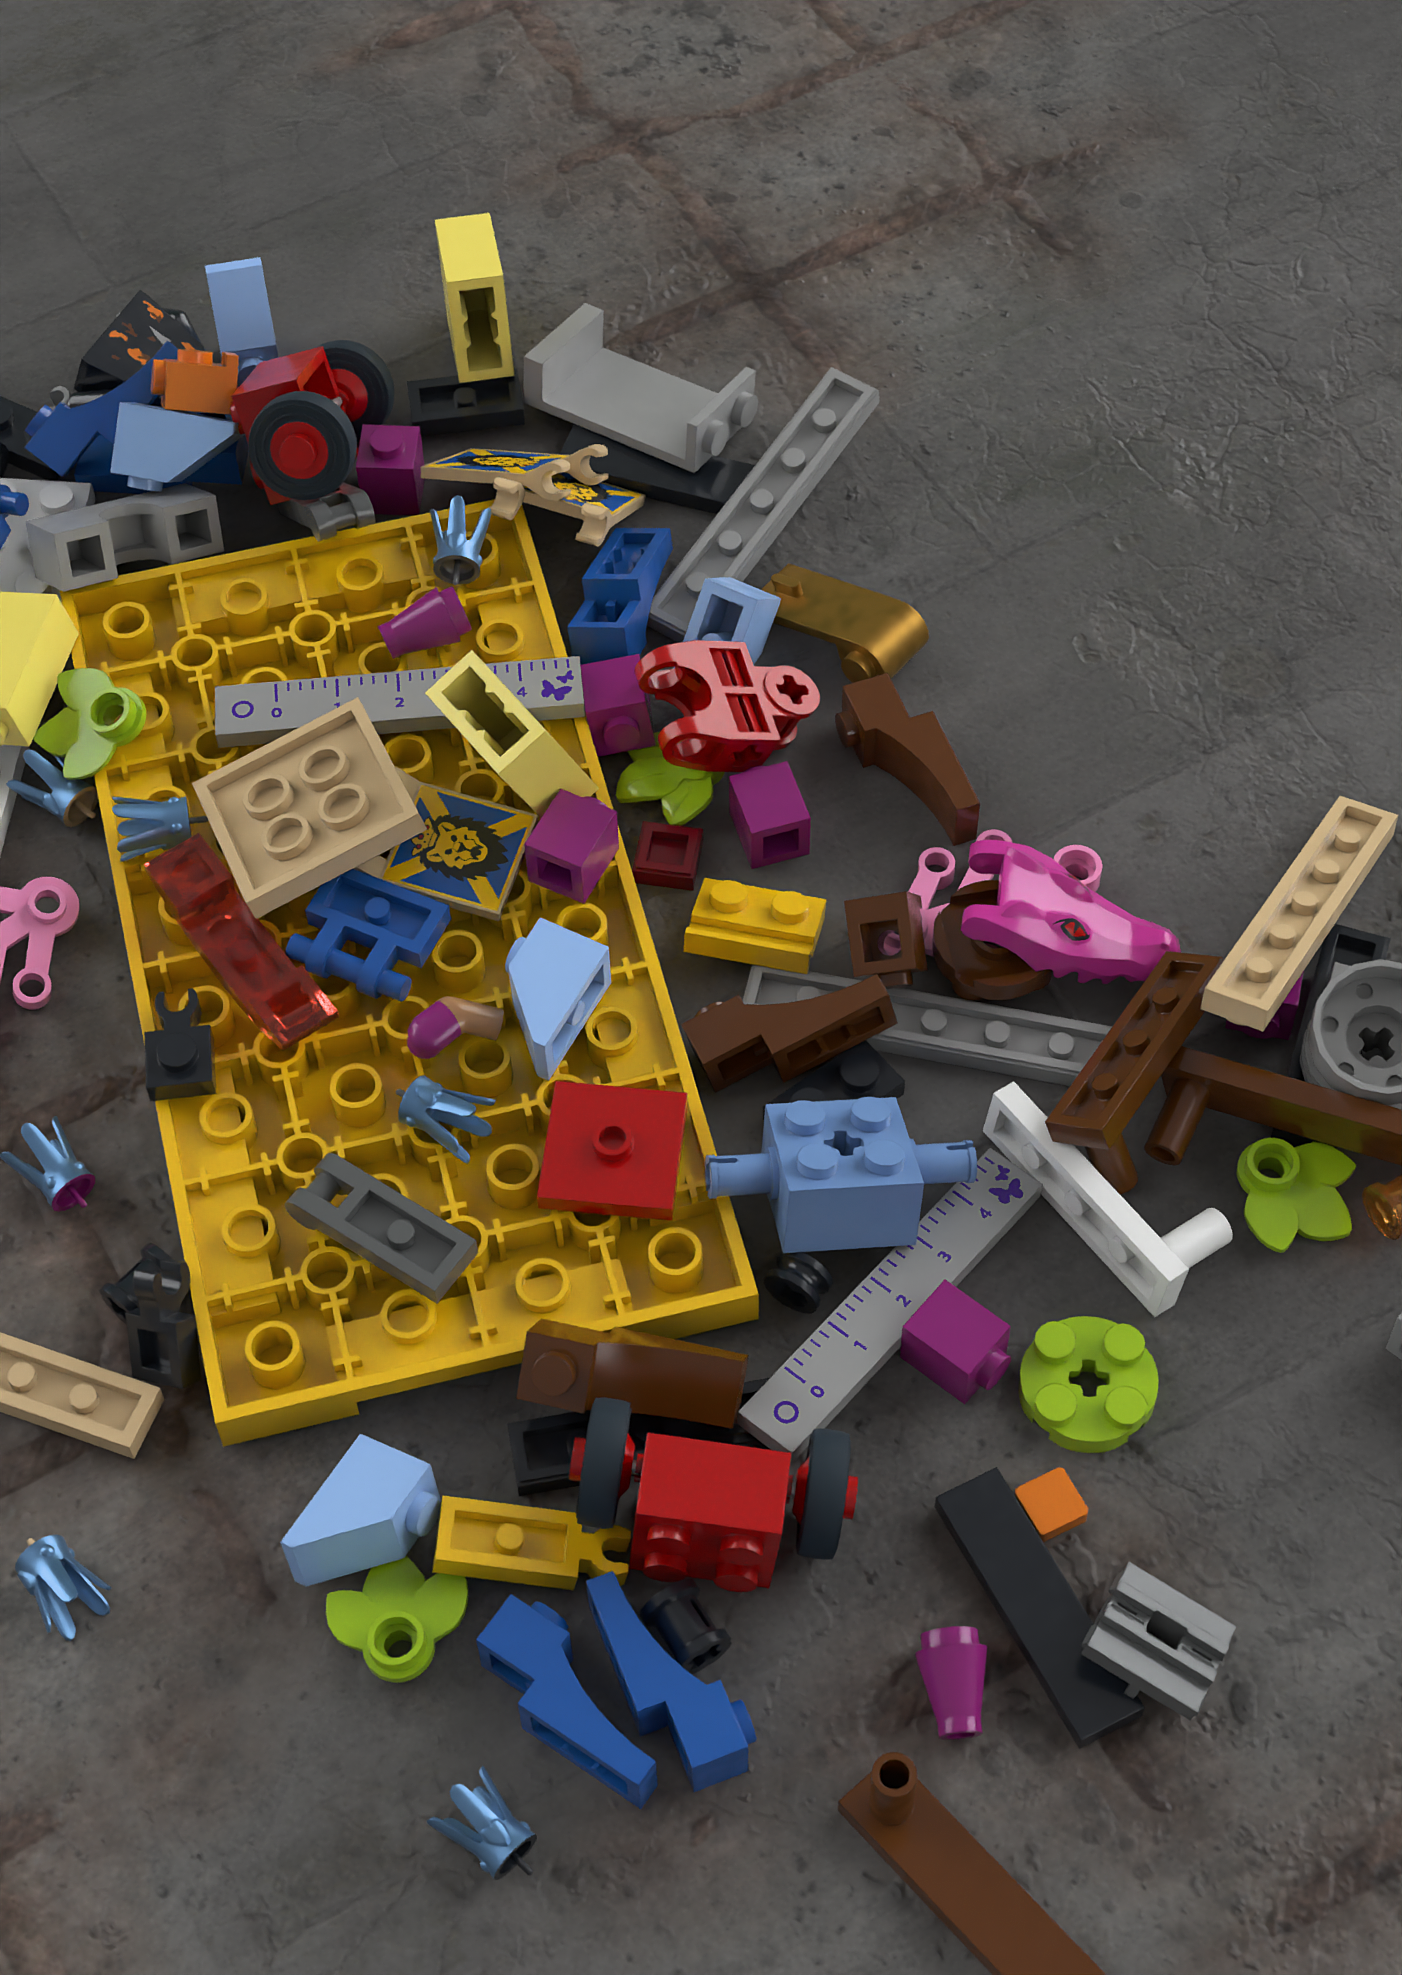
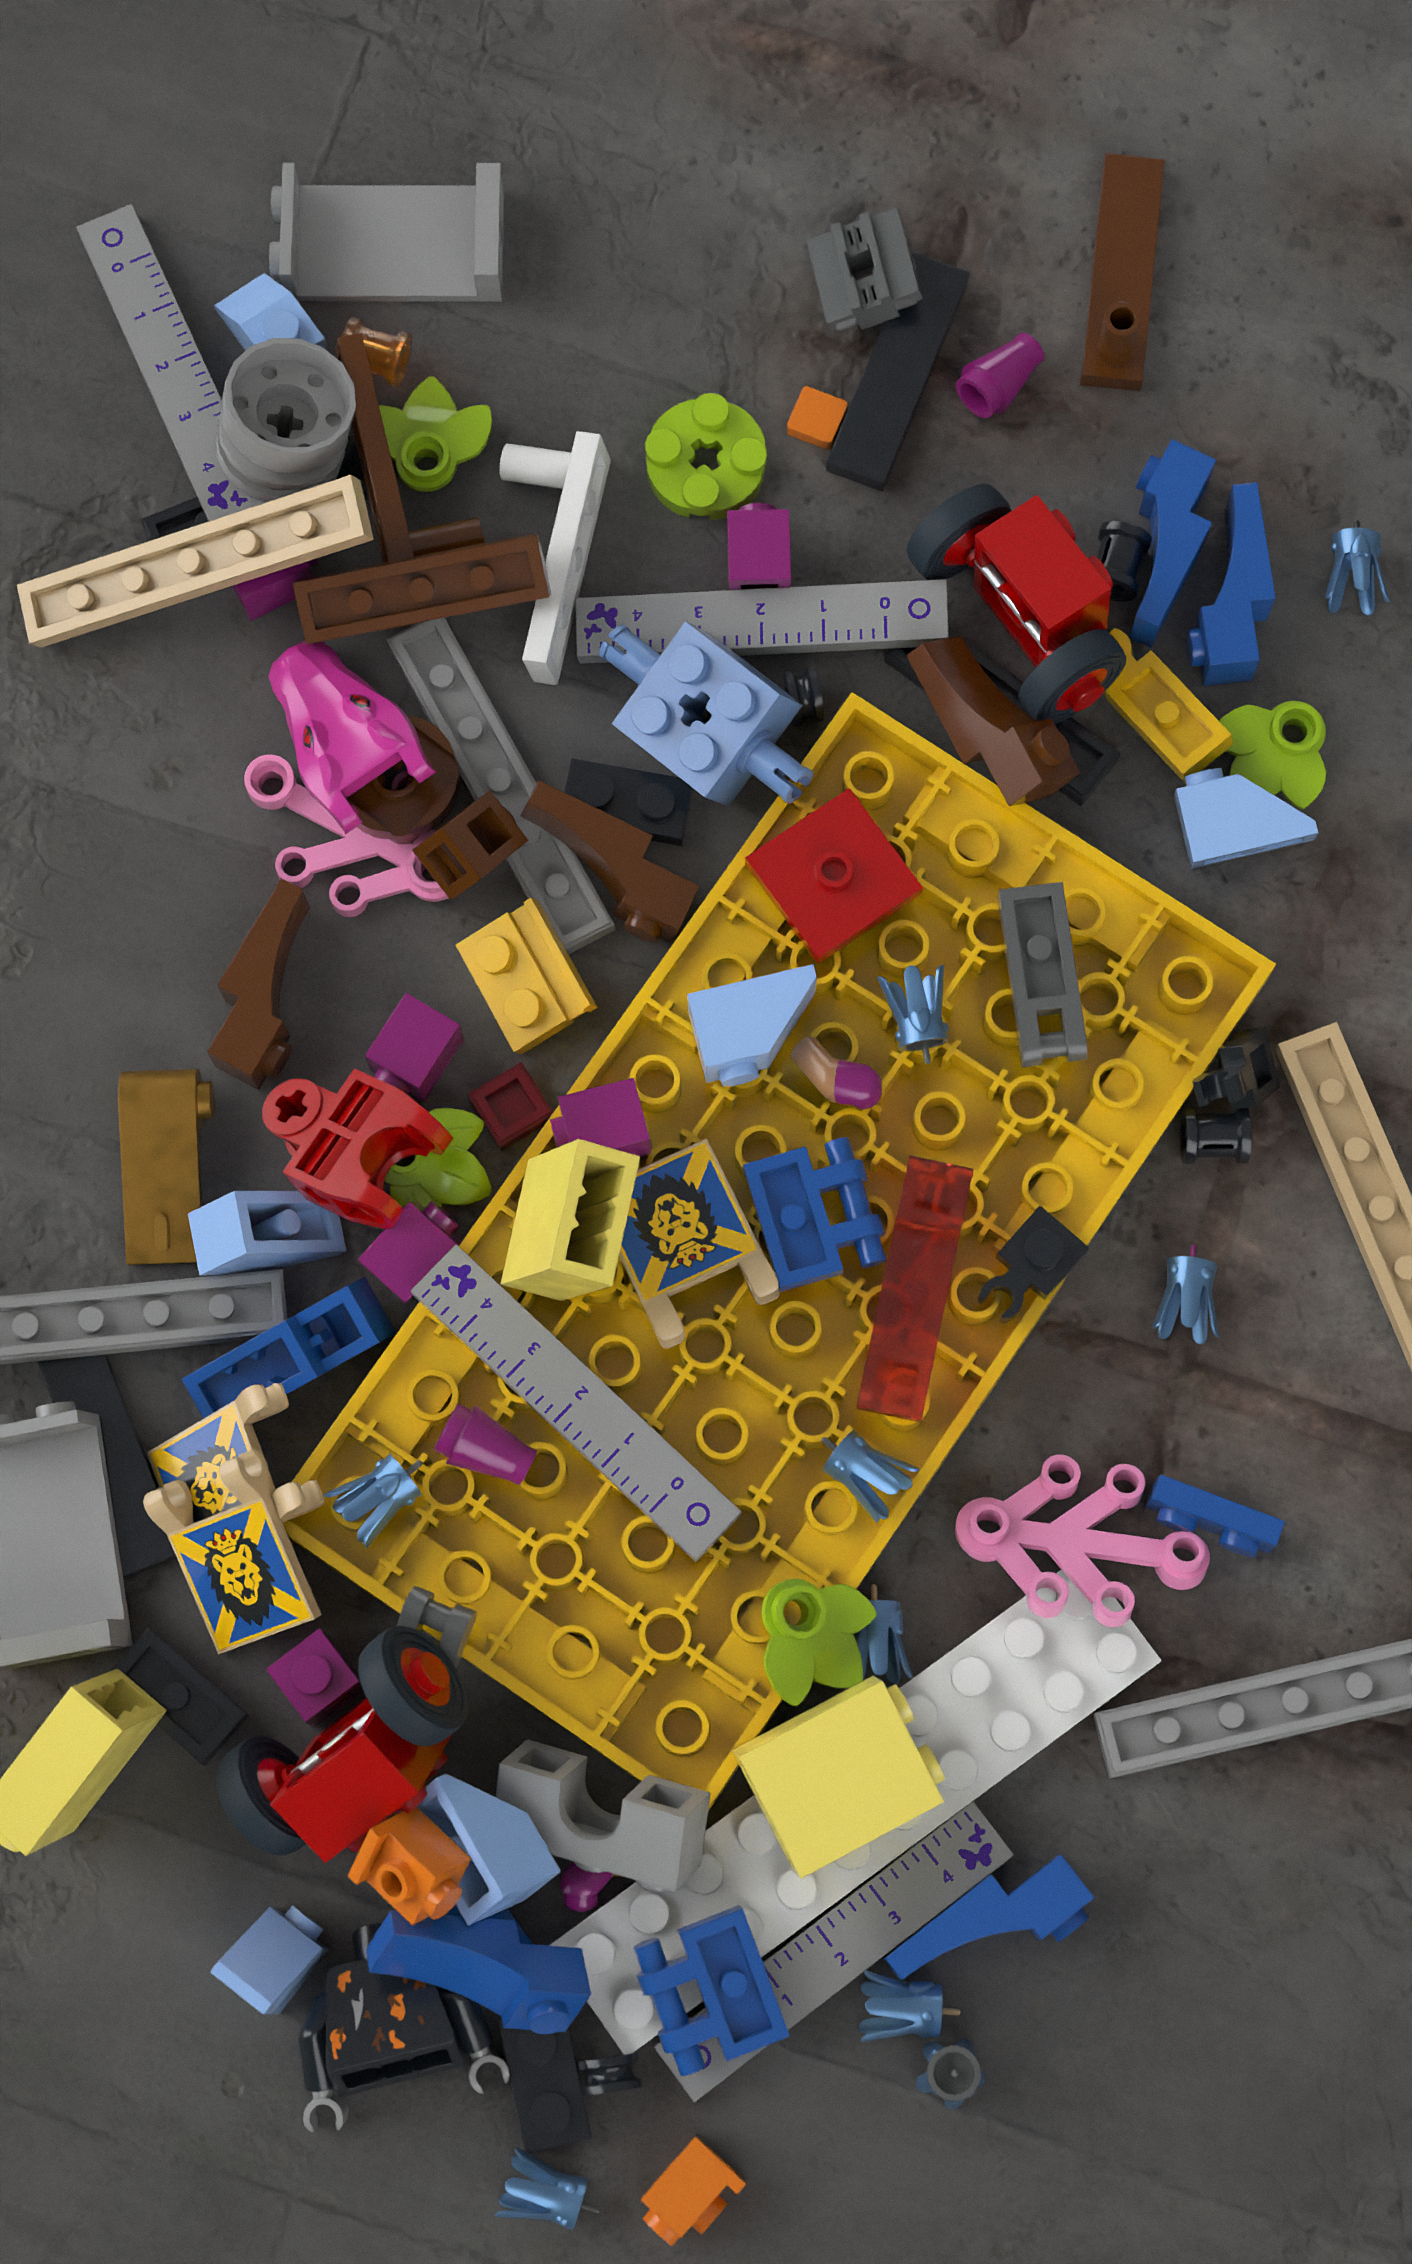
camera: 130 degrees left, 20 degrees up
(308, 807) = (755, 1347): tan plate -> none

